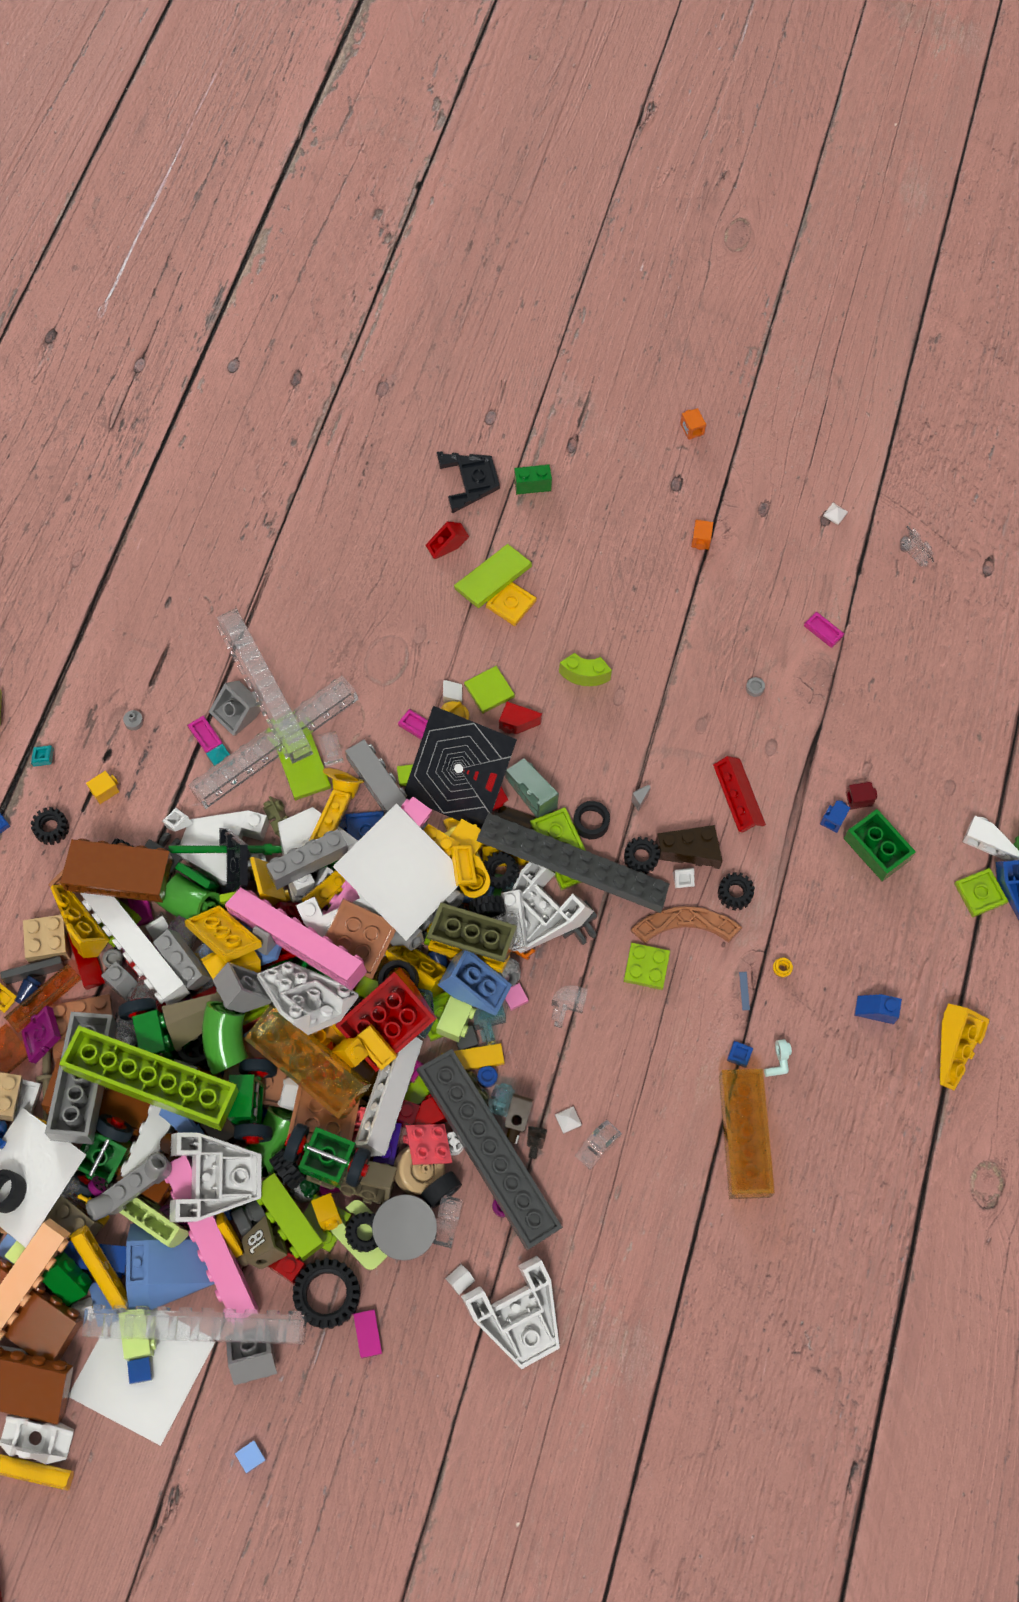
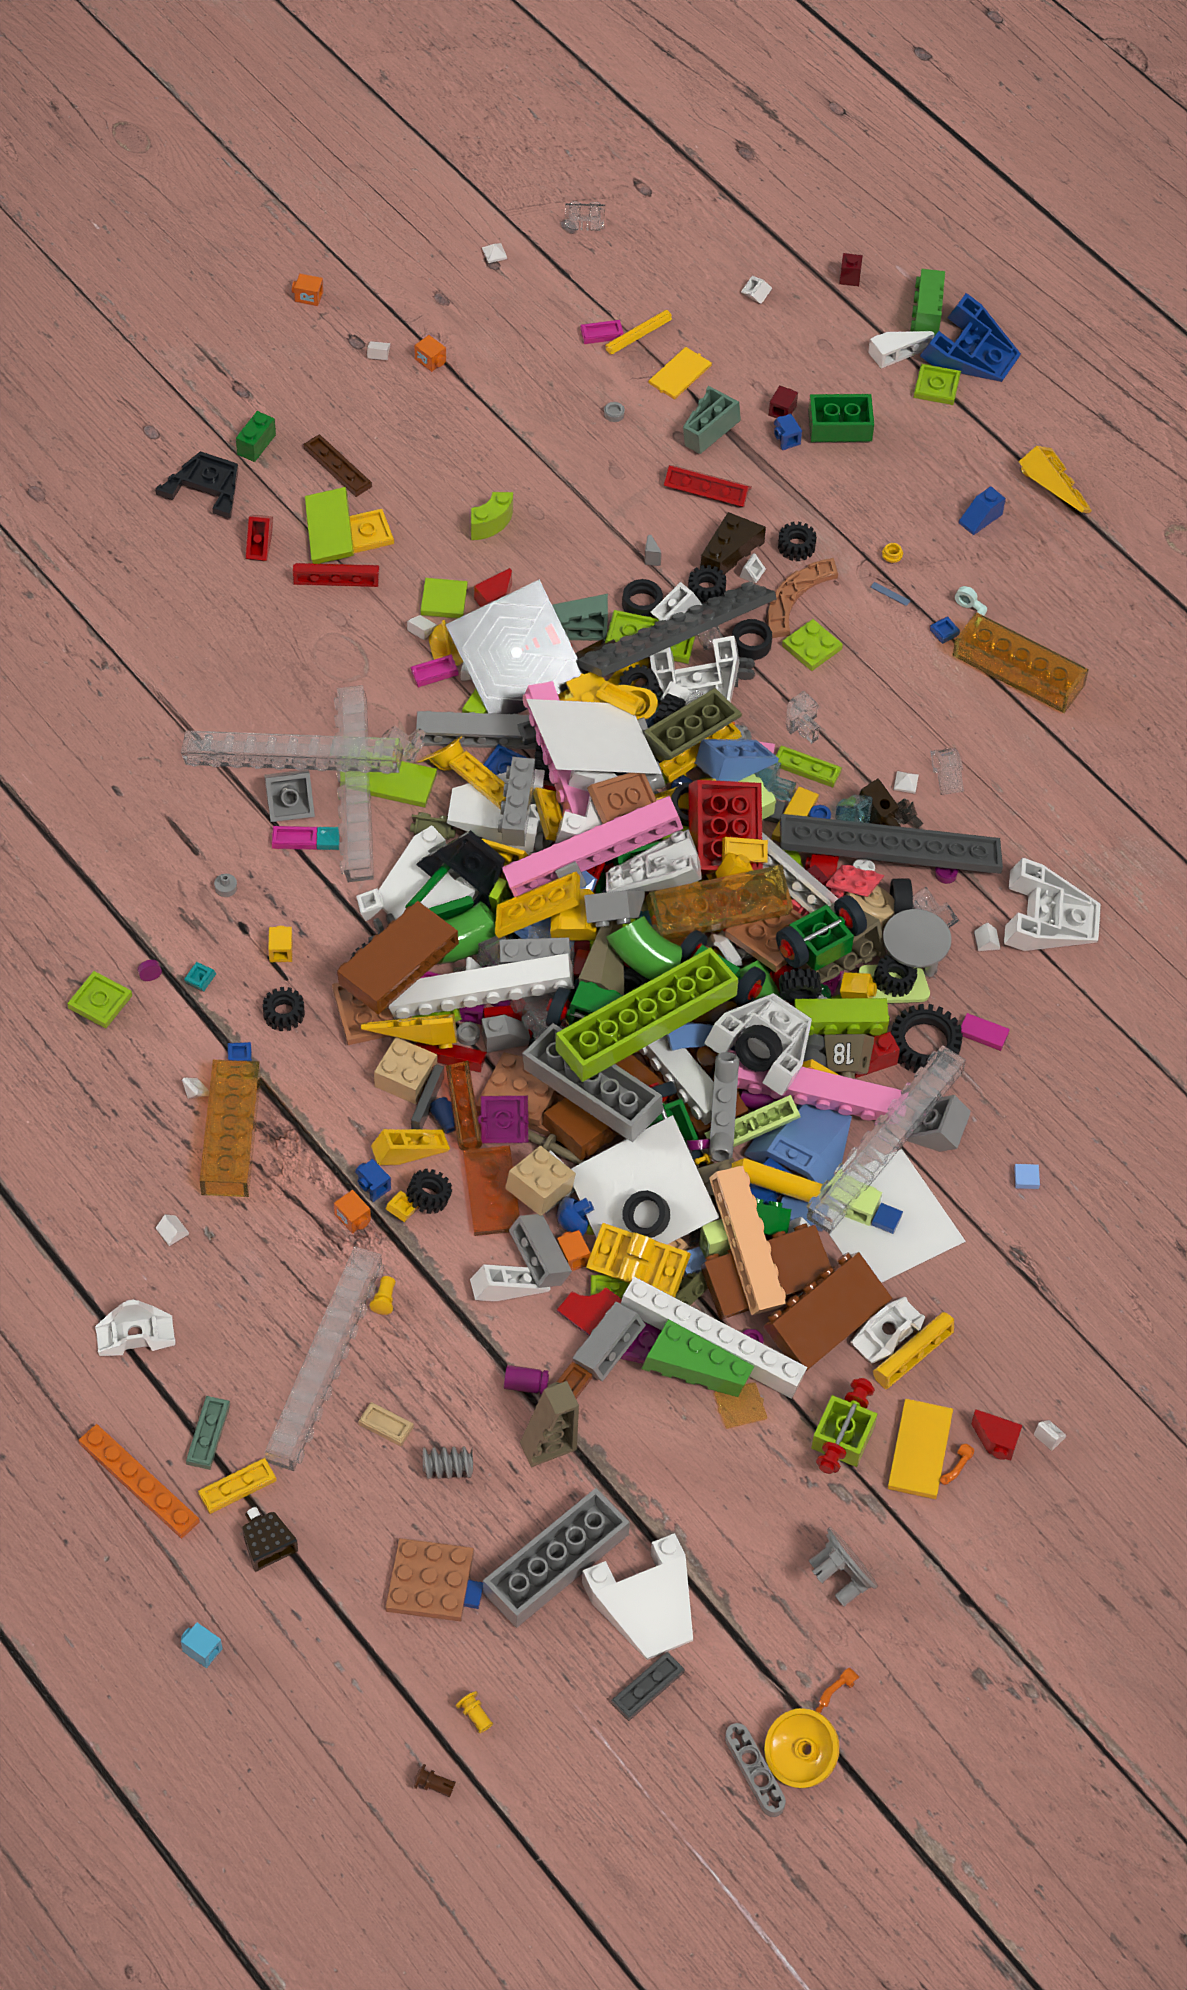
camera: 55 degrees left, 10 degrees down
(25, 721) = (149, 970): none -> magenta tile
(188, 1178) = (768, 1037): none -> black tyre
(456, 608) = (336, 574): none -> red panel
(527, 1037) = (808, 766): none -> lime tile
(553, 545) = (337, 465): none -> reddish brown tile
(594, 893) = (706, 638): none -> clear tile
(601, 846) = (677, 601): none -> white slope
(615, 905) = (754, 627): none -> black tyre
(679, 501) = (378, 350): none -> white slope
(797, 756) = (710, 420): none -> sand green wedge
(832, 706) = (680, 373): none -> yellow piece
(844, 653) = (638, 332): none -> yellow axle
(957, 705) = (756, 289): none -> white slope

